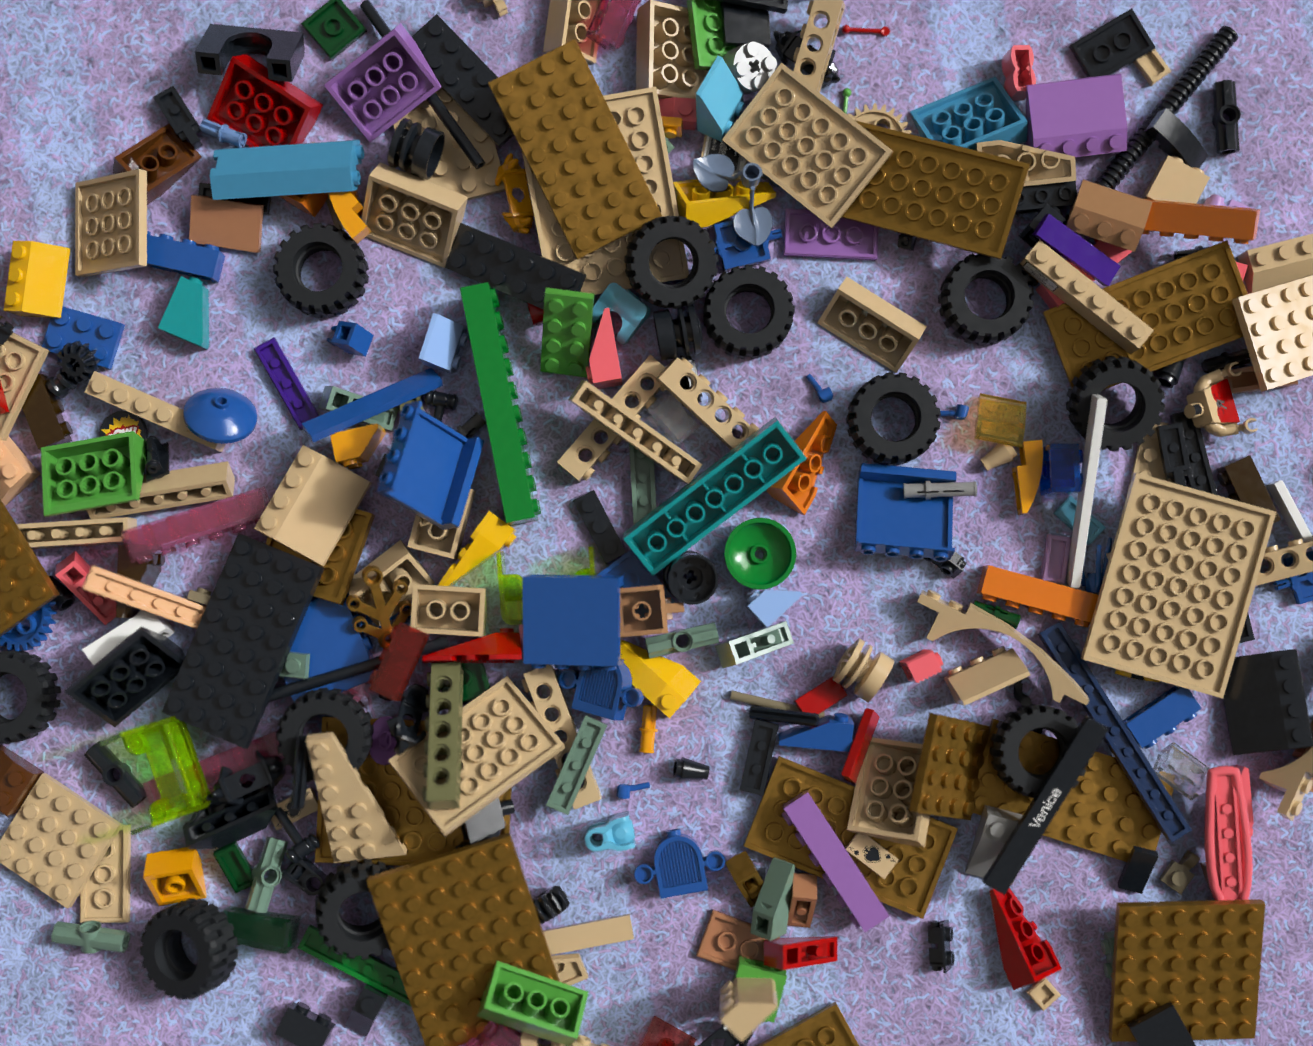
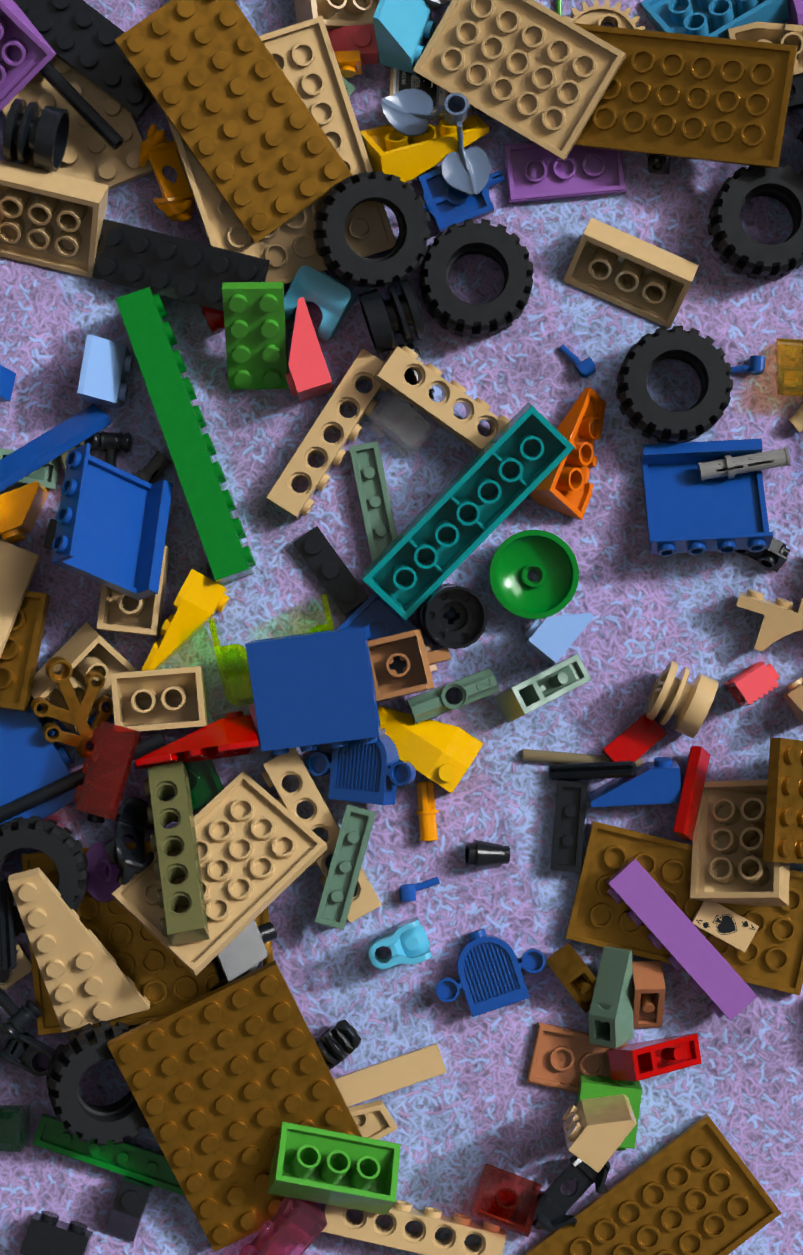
camera: 10 degrees left, 0 degrees up
(635, 431) = (357, 445): tan brick -> none

